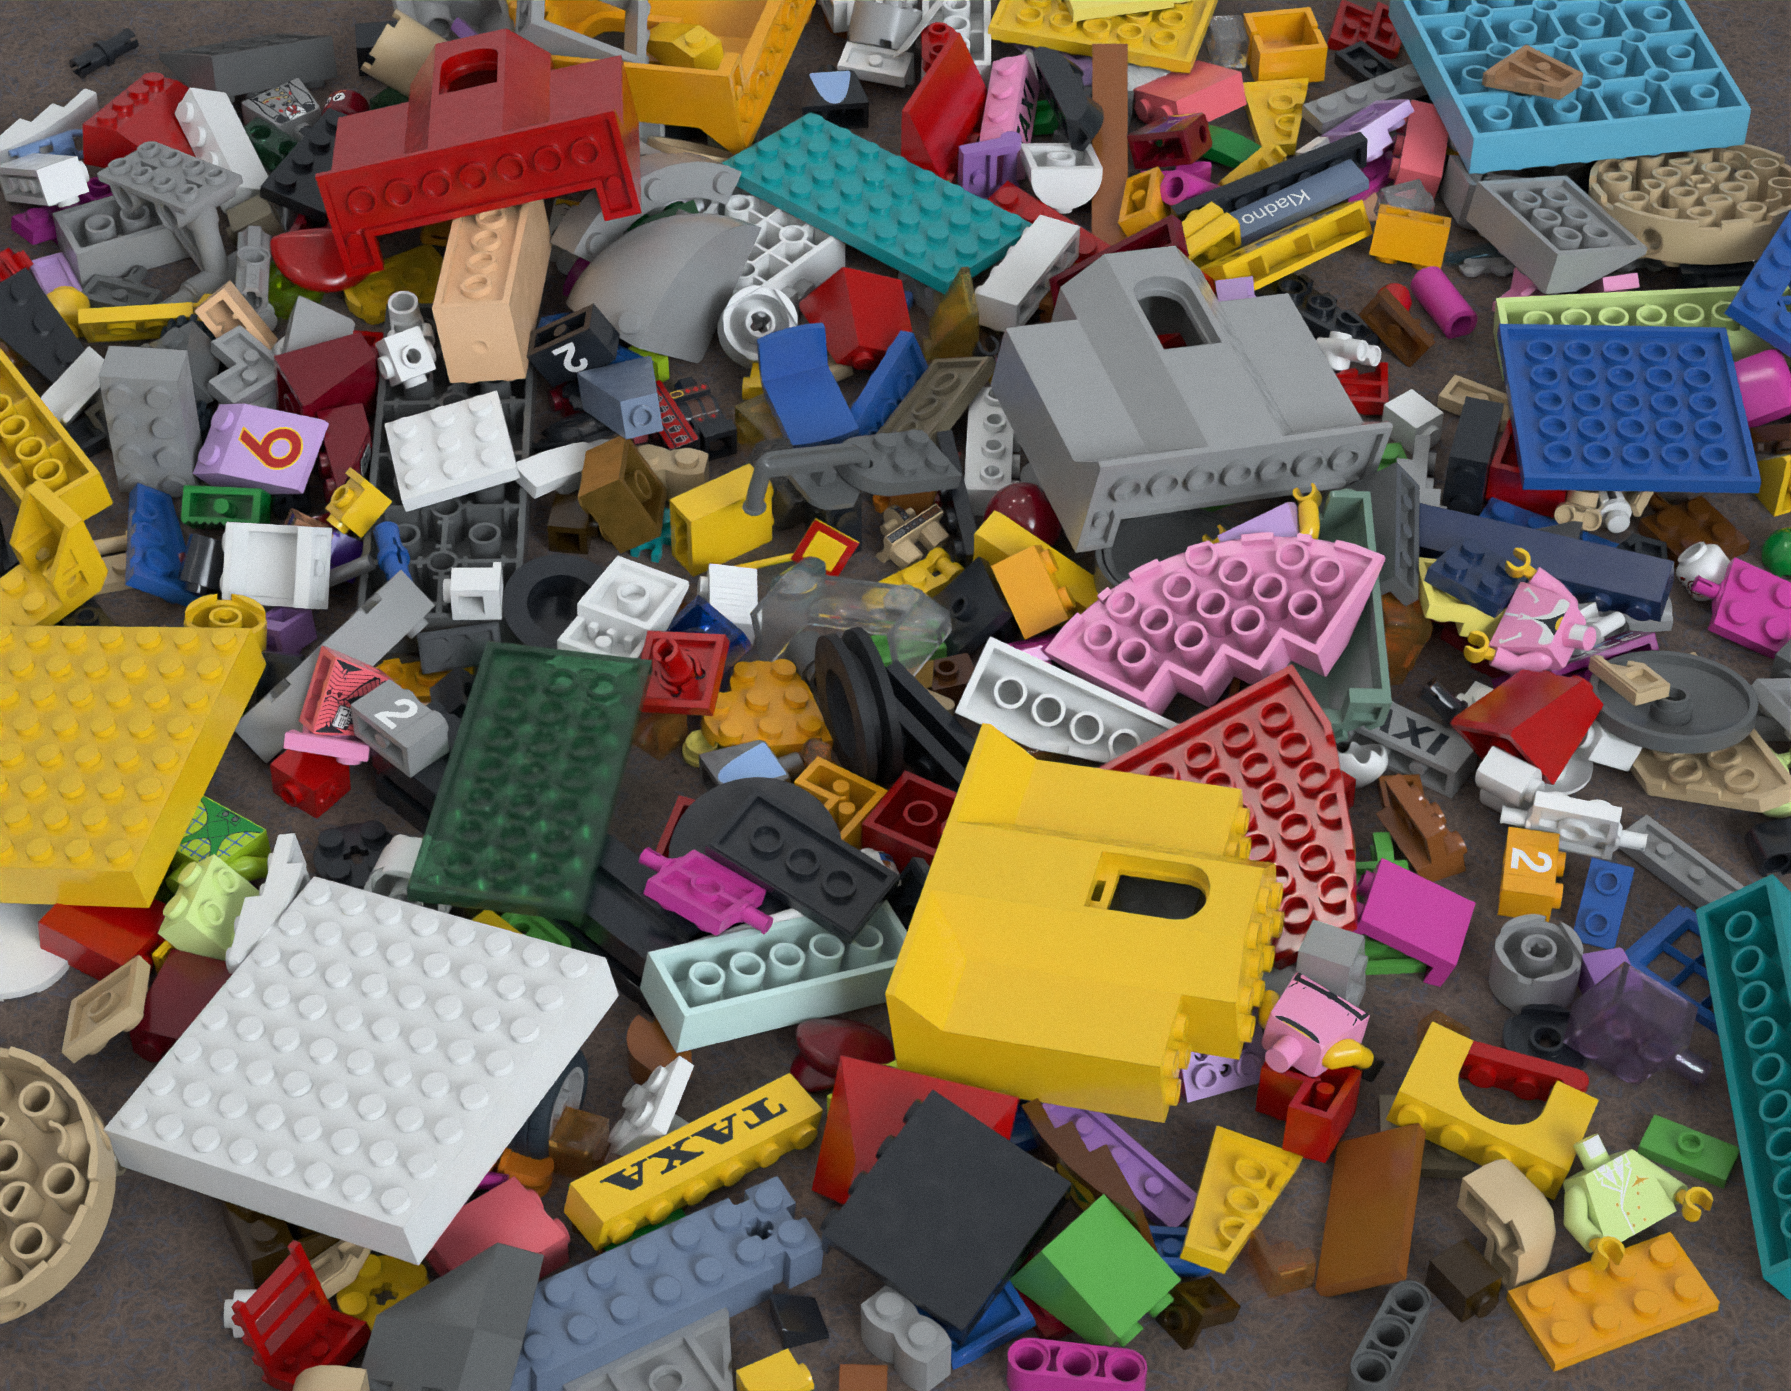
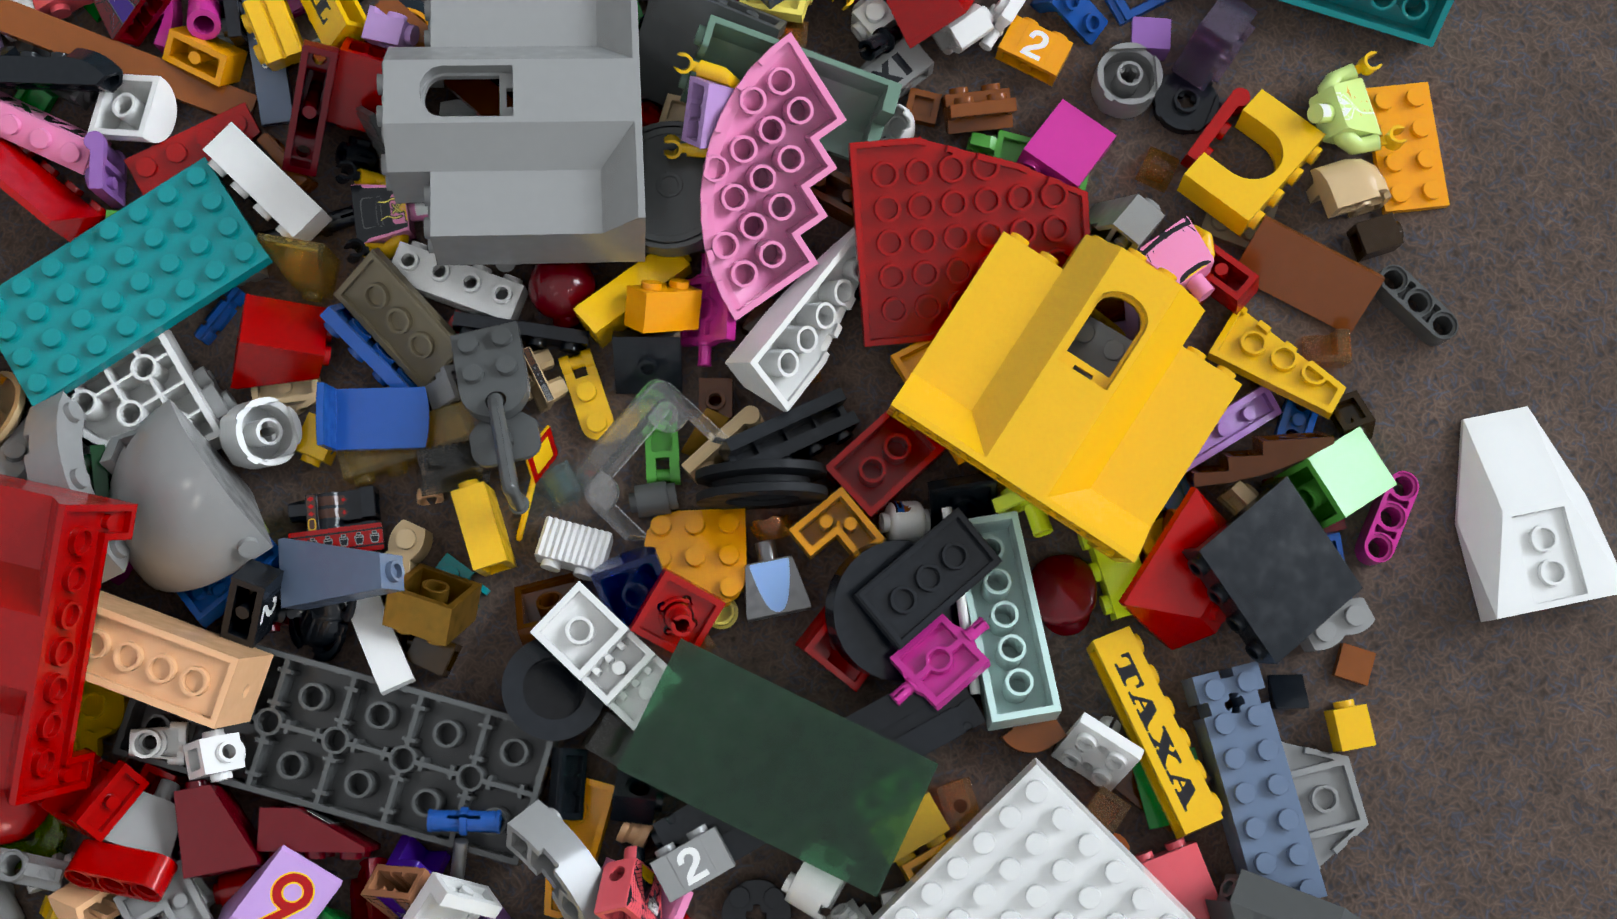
camera: 75 degrees left, 35 degrees up
(269, 318) = (121, 870): none -> red beam
(340, 292) = (101, 806): none -> red panel
(356, 505) = (387, 838): yellow brick -> none
(451, 451) = (345, 741): white plate -> none
(475, 593) = (531, 761): white brick -> none
(1688, 1151) = (1297, 47): bright green plate -> none

